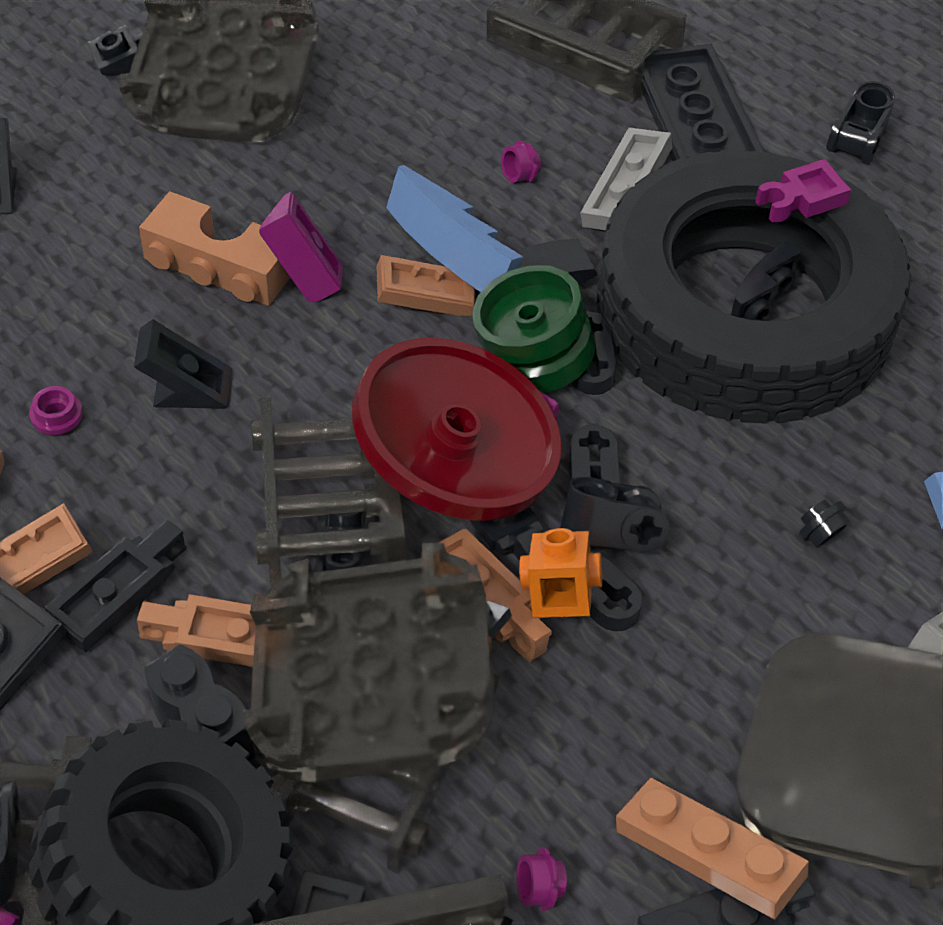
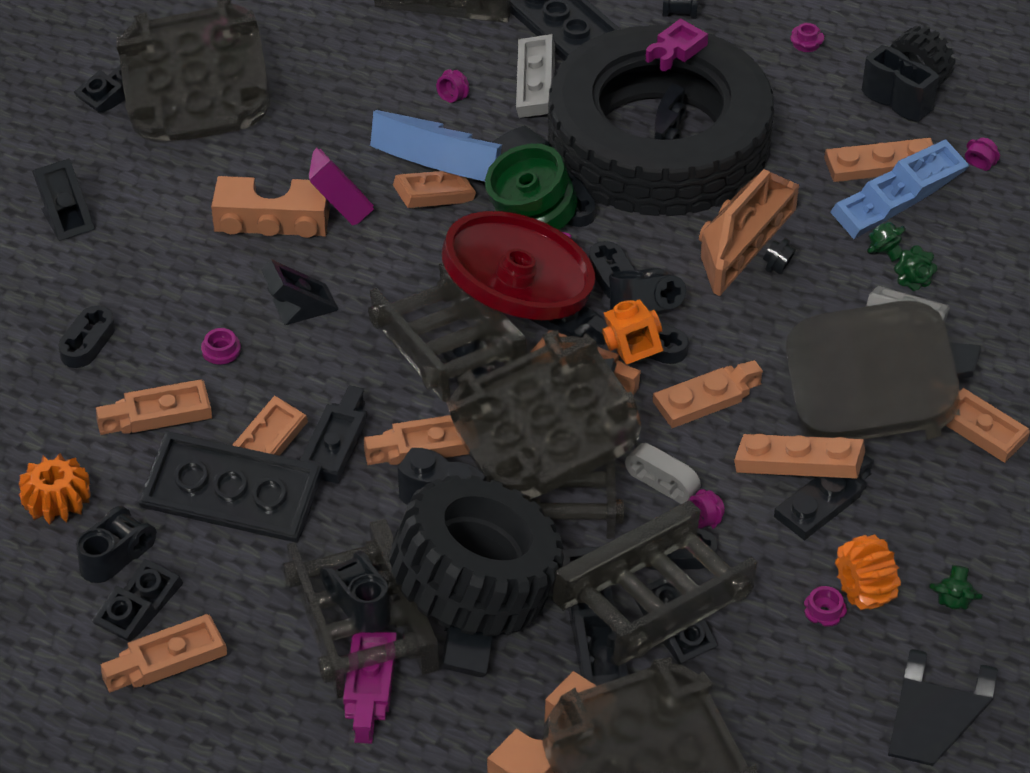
camera: 20 degrees left, 5 degrees down
(508, 799) = (663, 472): none -> light grey beam
(632, 694) = (707, 393): none -> nougat hinge
(795, 467) = (745, 227): none -> nougat wedge

